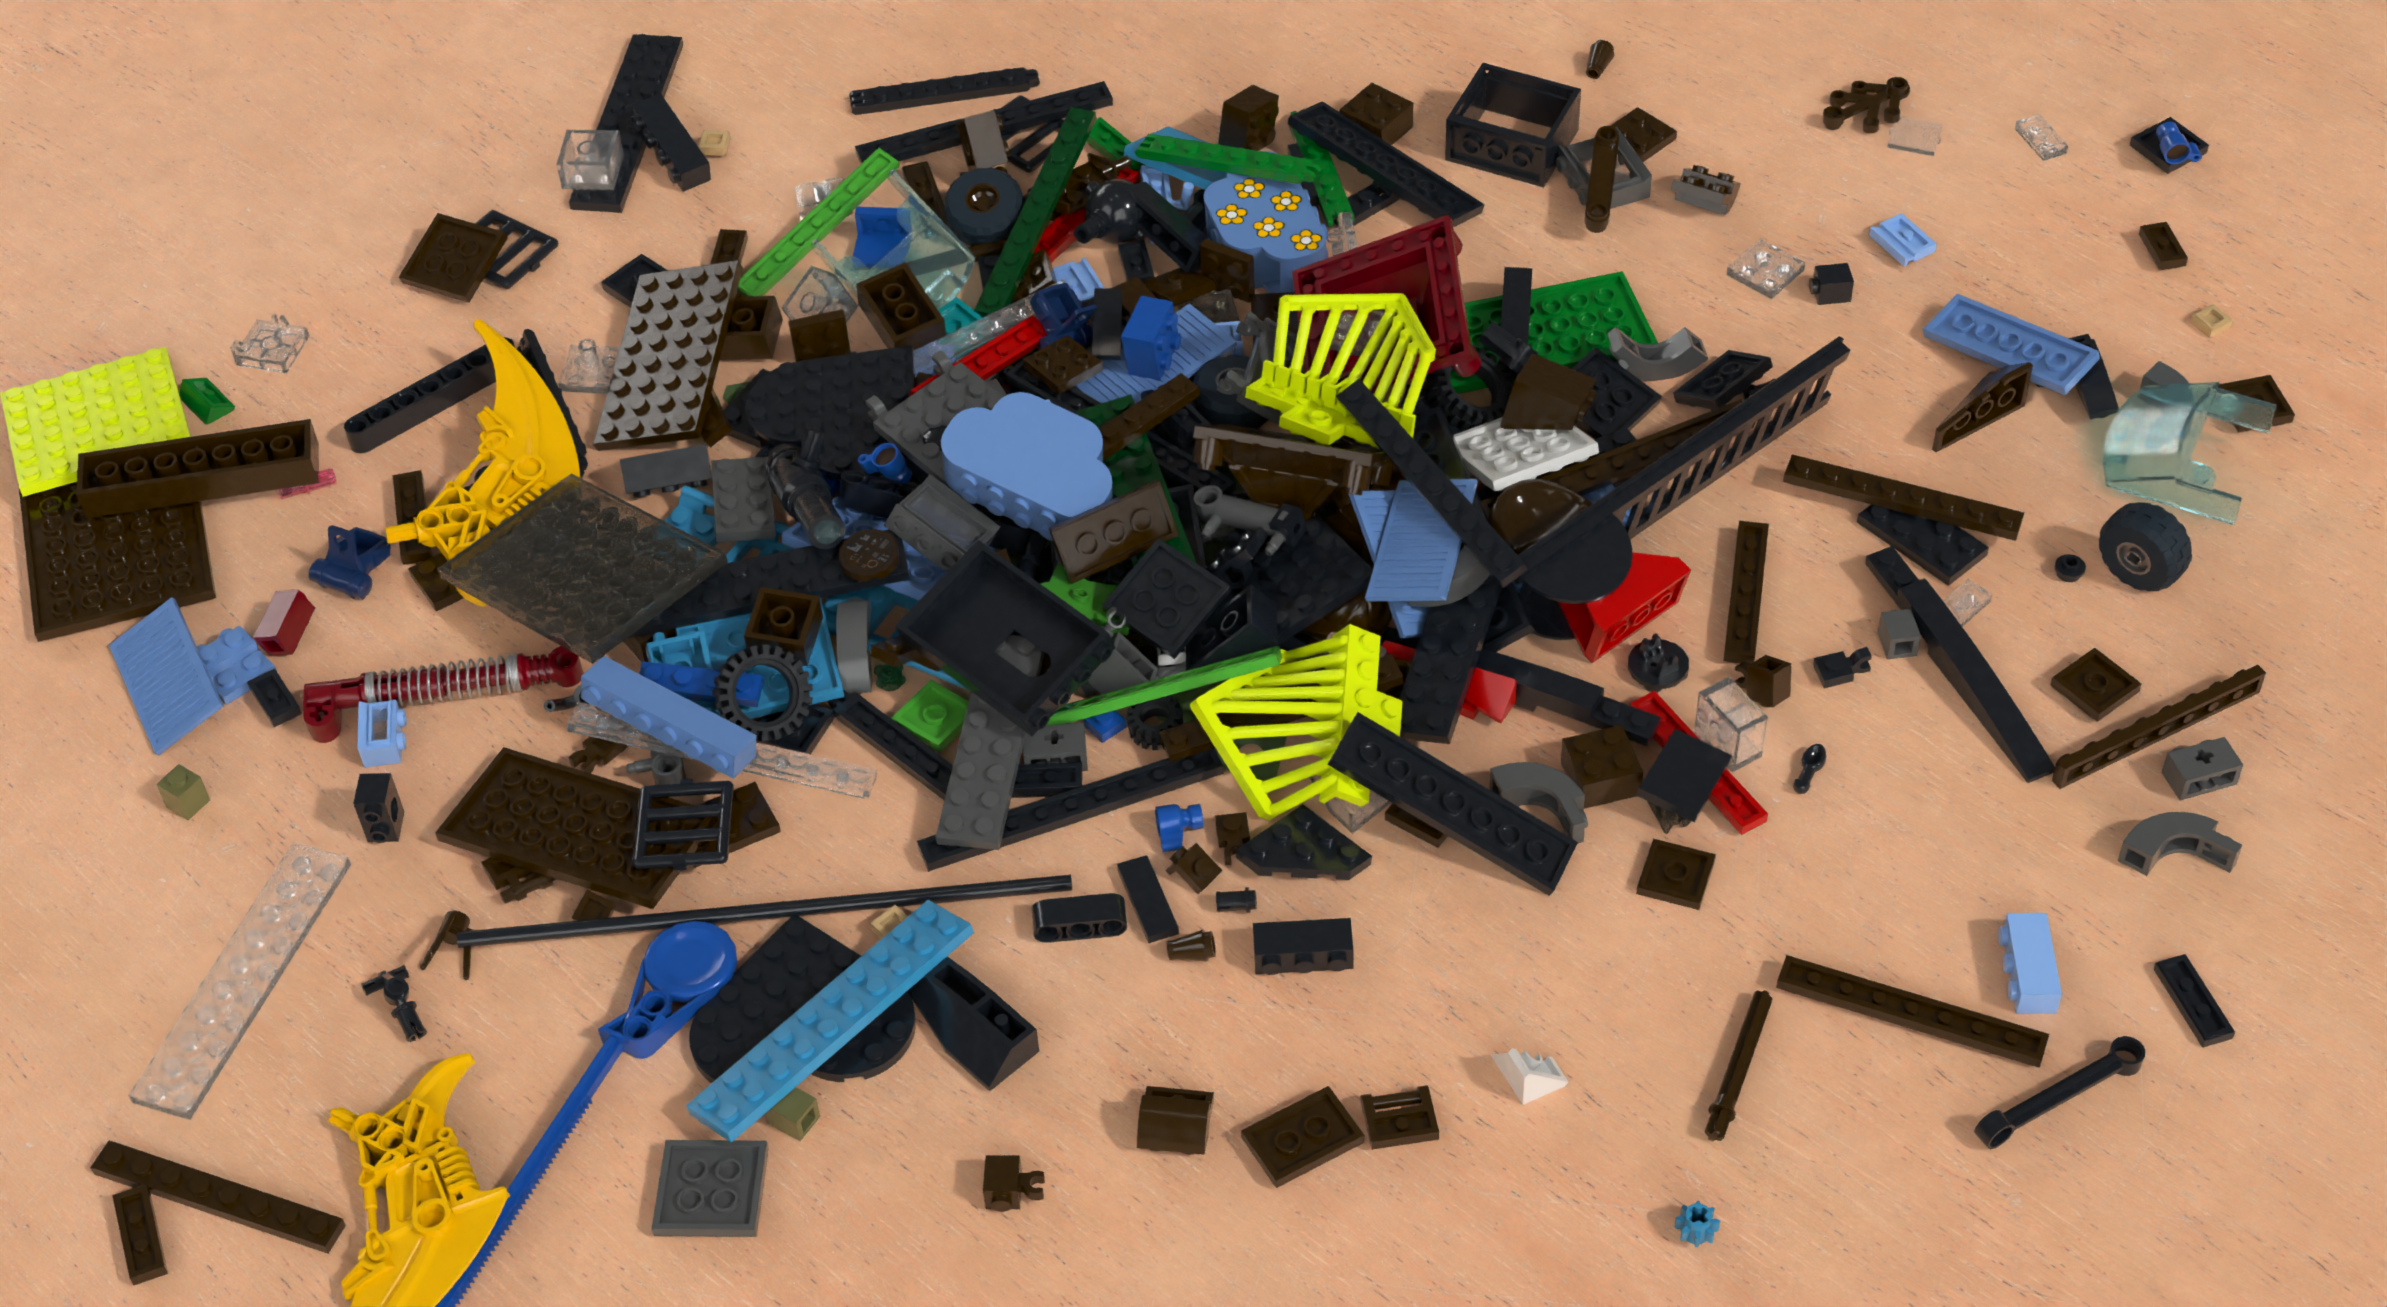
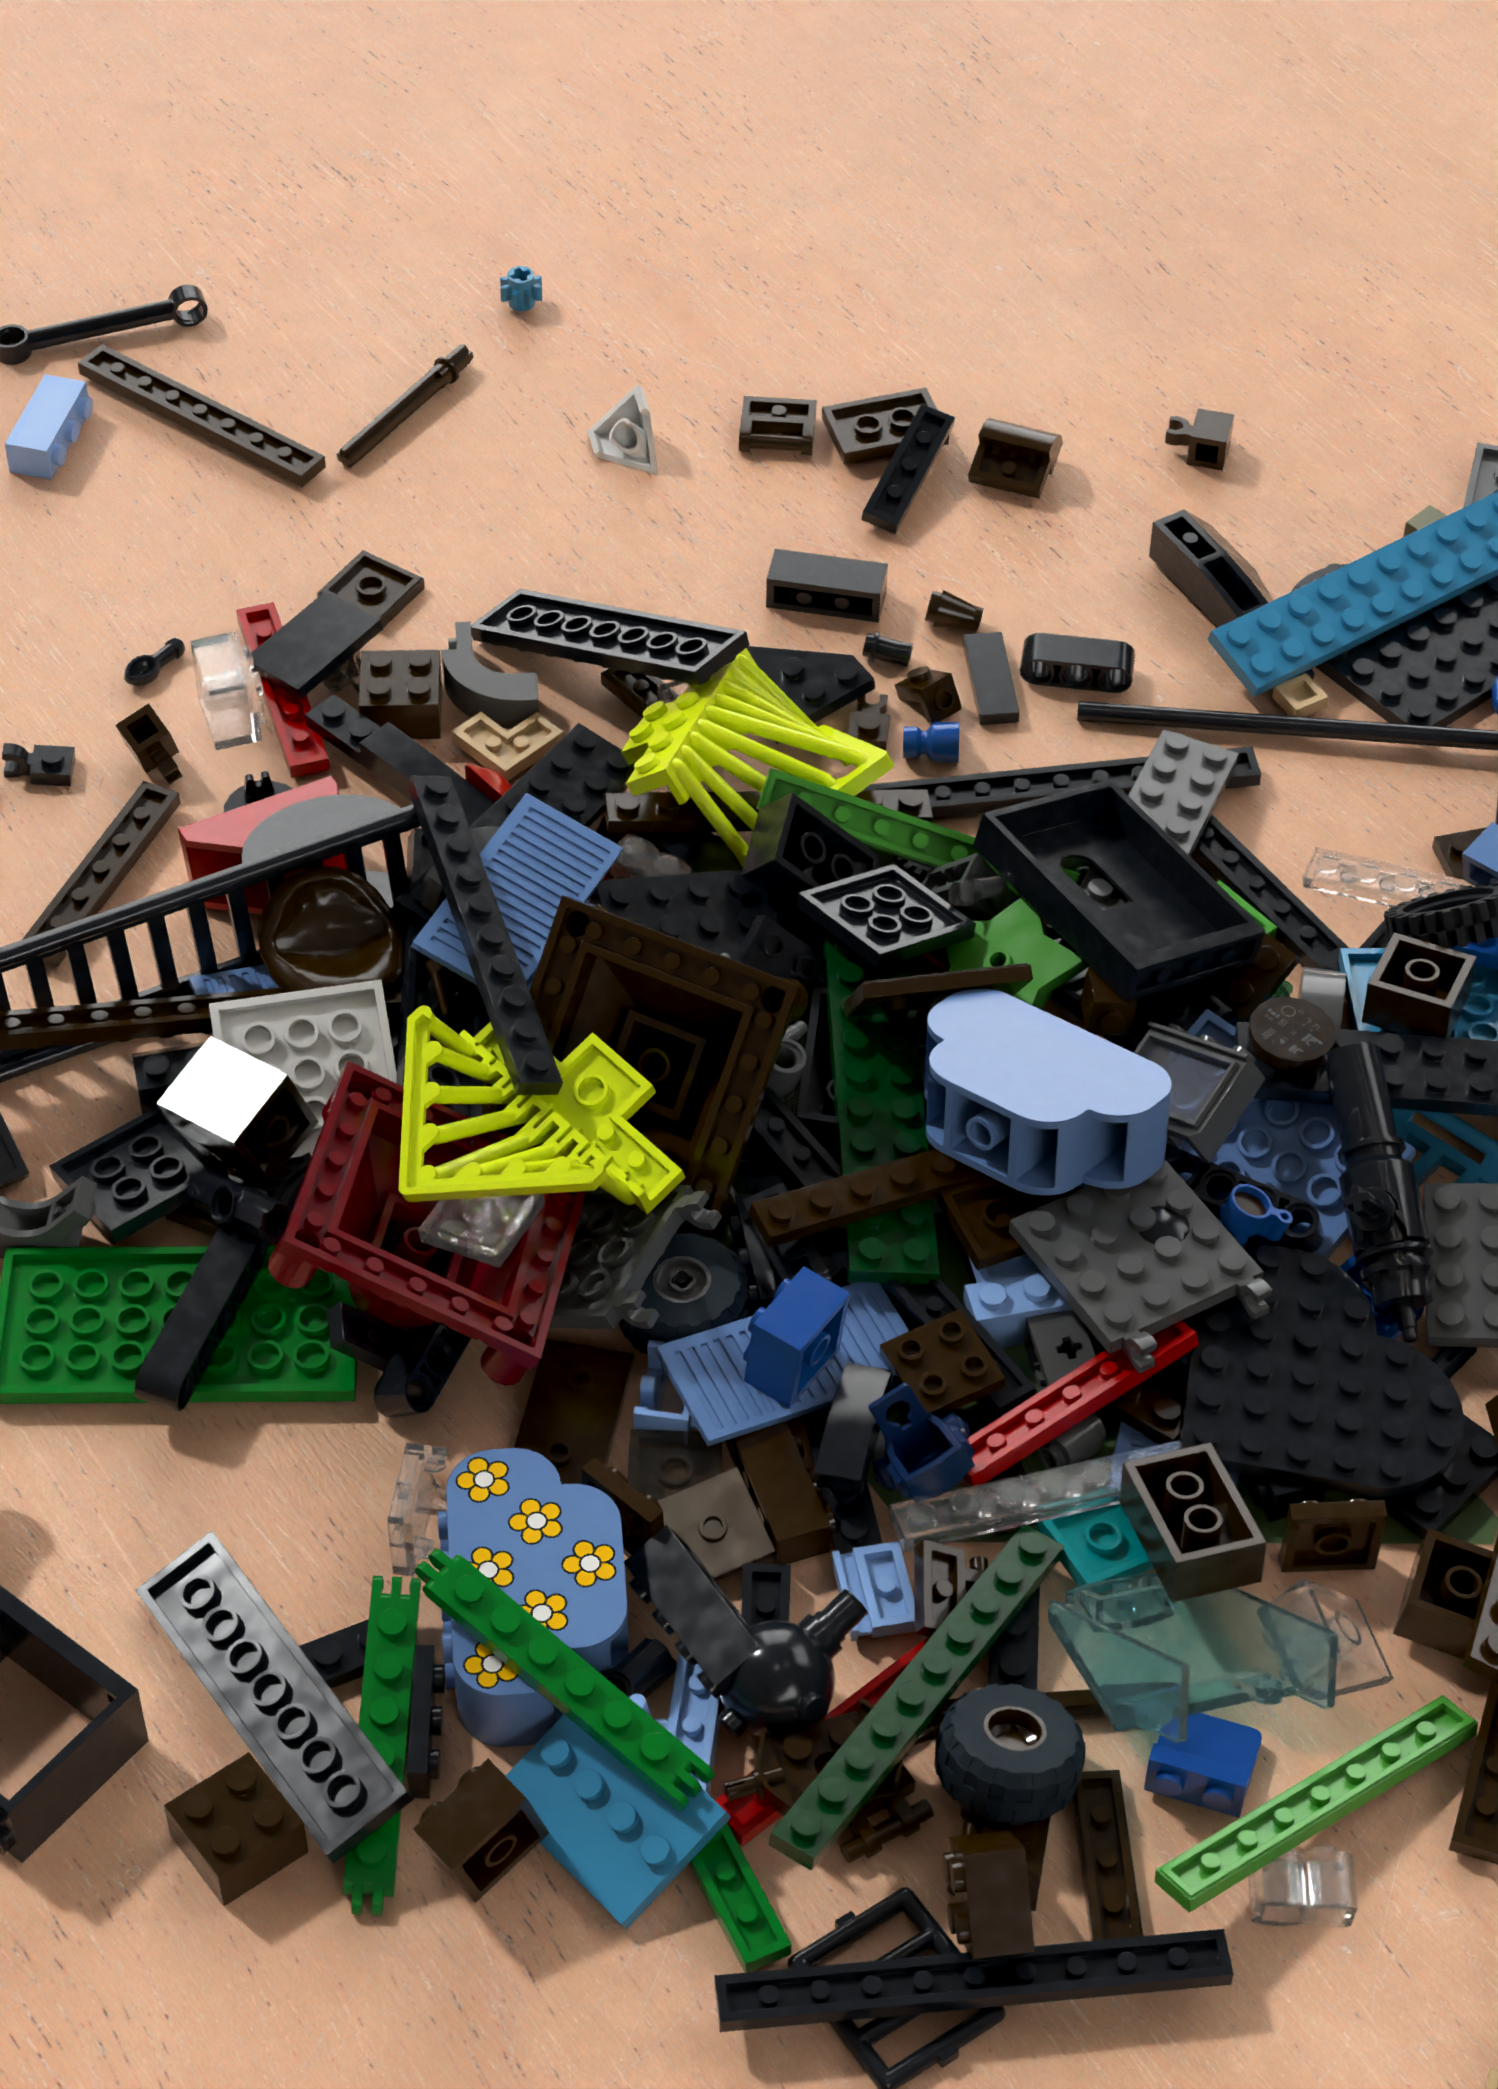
camera: 170 degrees left, 0 degrees up
(1265, 1076) = (908, 468): none -> black plate
(1503, 745) = (505, 750): none -> tan plate

